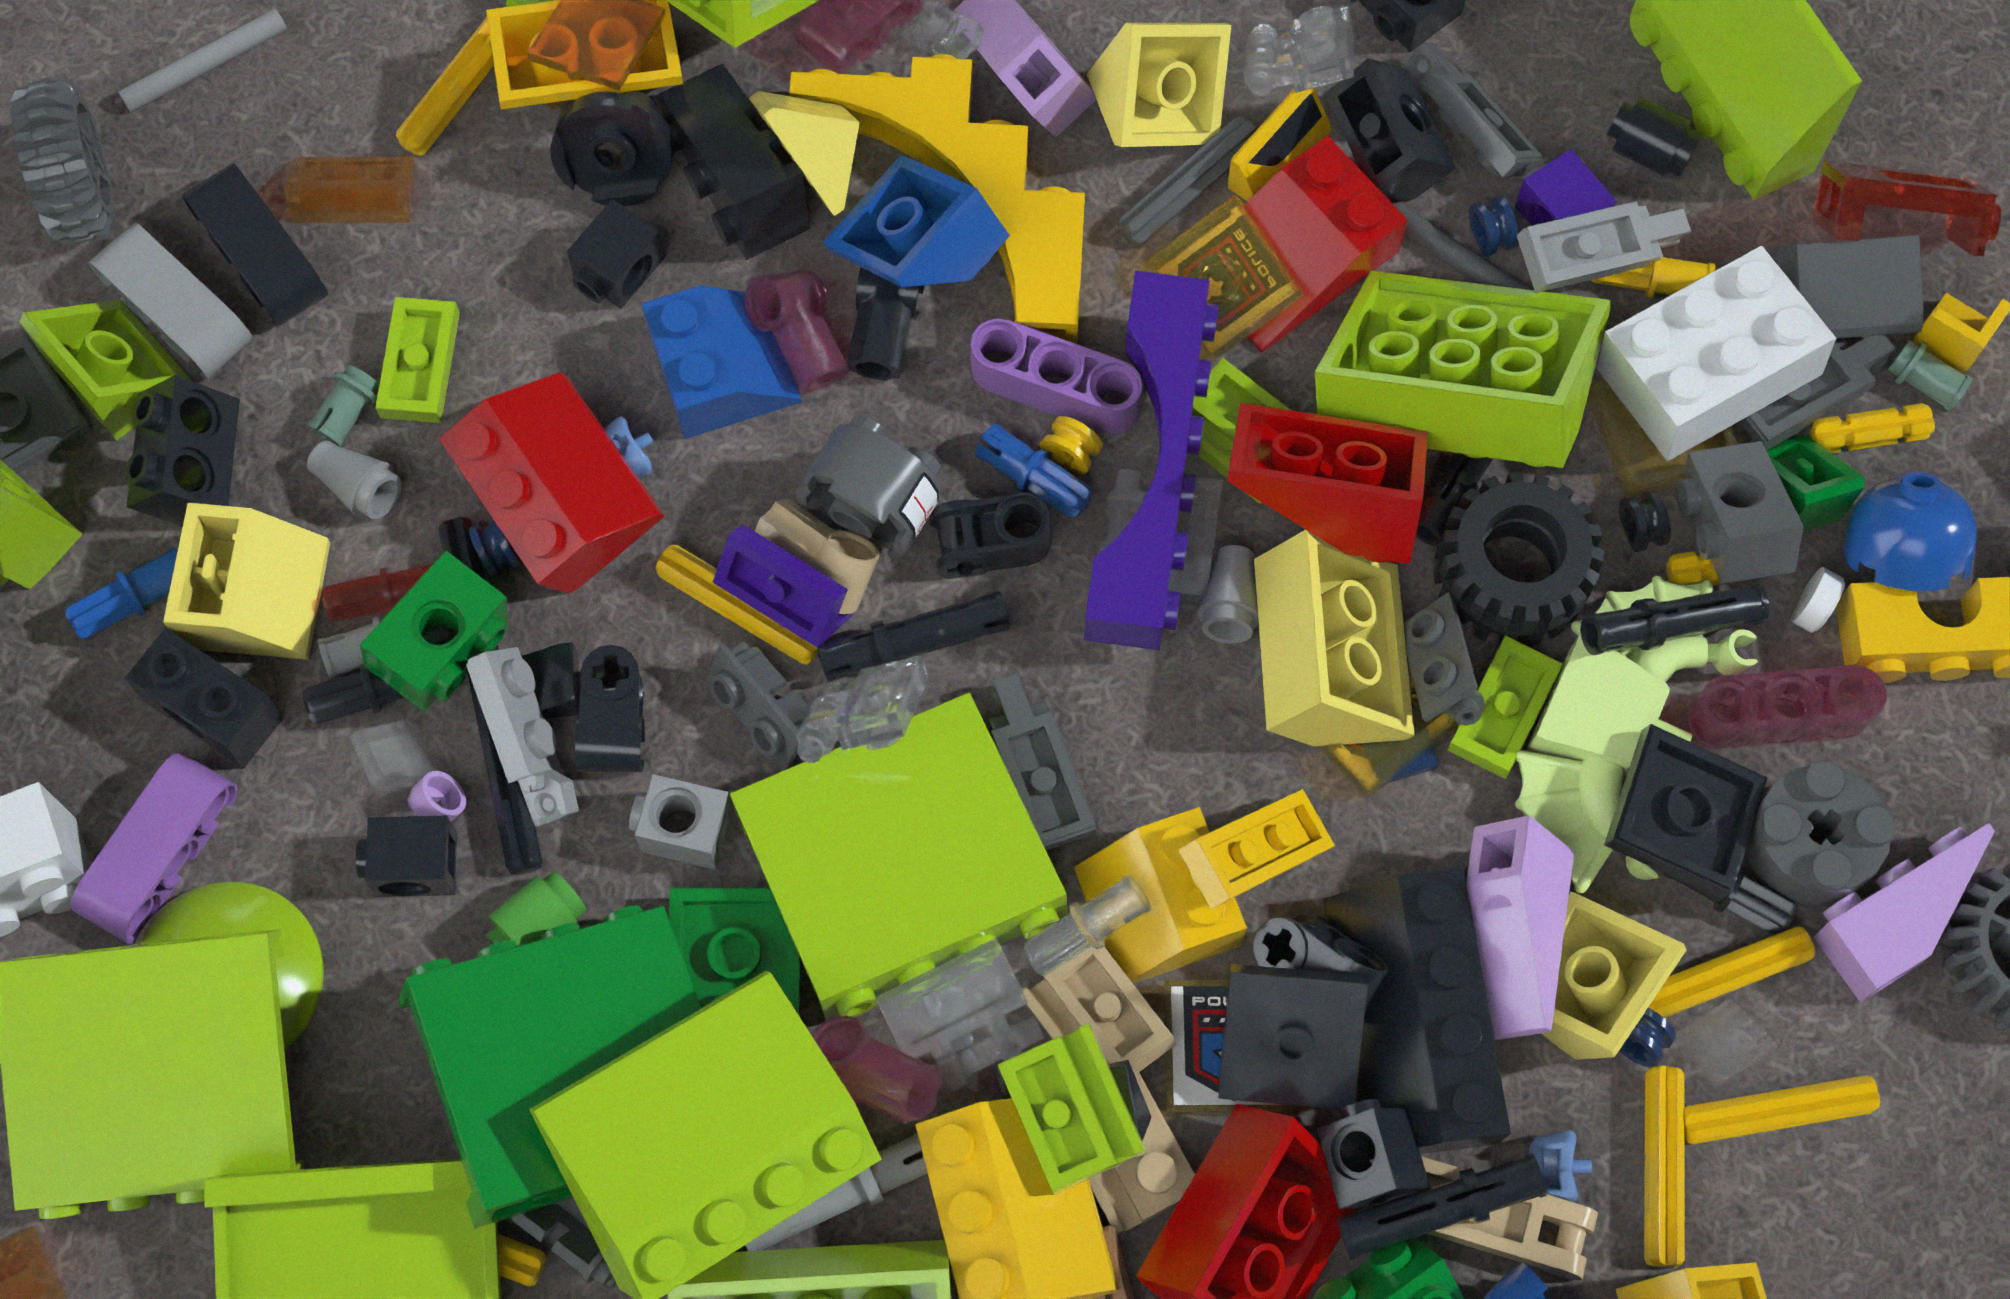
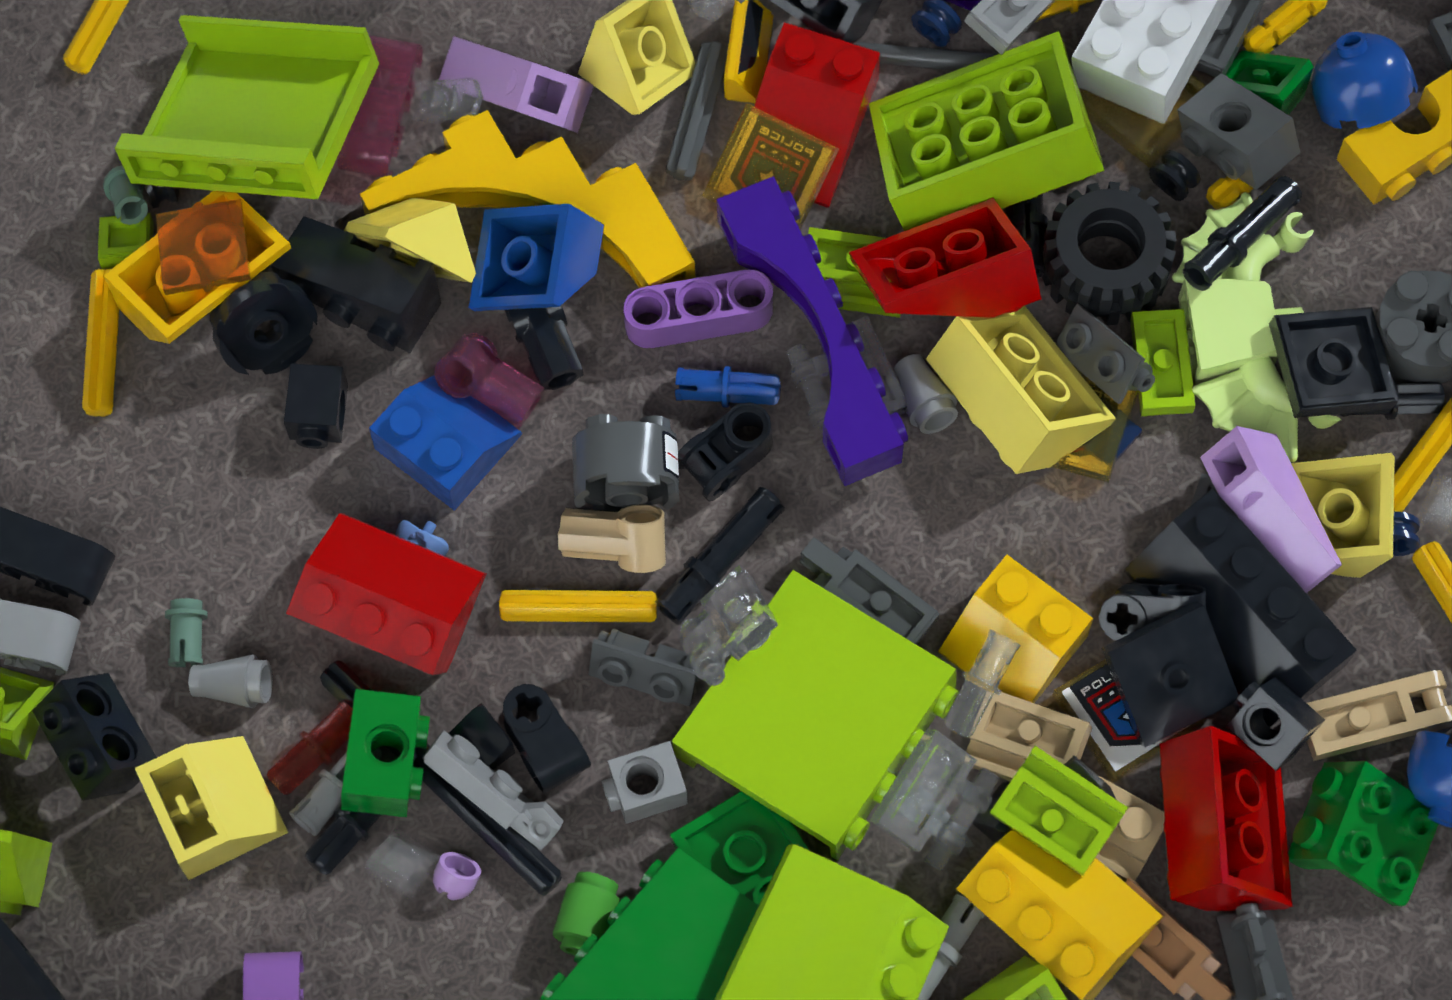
camera: 30 degrees left, 0 degrees up
(122, 596) = (122, 864): blue axle -> none
(204, 697) = (236, 903): black brick -> none
(350, 190) = (75, 470): clear orange slope -> none
(408, 856) = (465, 926): black brick -> none
(417, 360) = (219, 567): lime plate -> none
(493, 548) = (373, 668): dark blue bush -> none
(781, 586) = (607, 573): dark purple panel -> none
(878, 1072) = (909, 869): clear pink piece -> none
(1072, 444) = (742, 351): yellow bush -> none
(1255, 848) = (1064, 560): yellow plate -> none
(1466, 1198) = (1380, 681): black pin -> none
(1555, 1158) = (1392, 656): medium blue piece -> none
(1808, 690) = (1360, 231): clear pink beam -> none
(1818, 600) = (1325, 163): white tile -> none

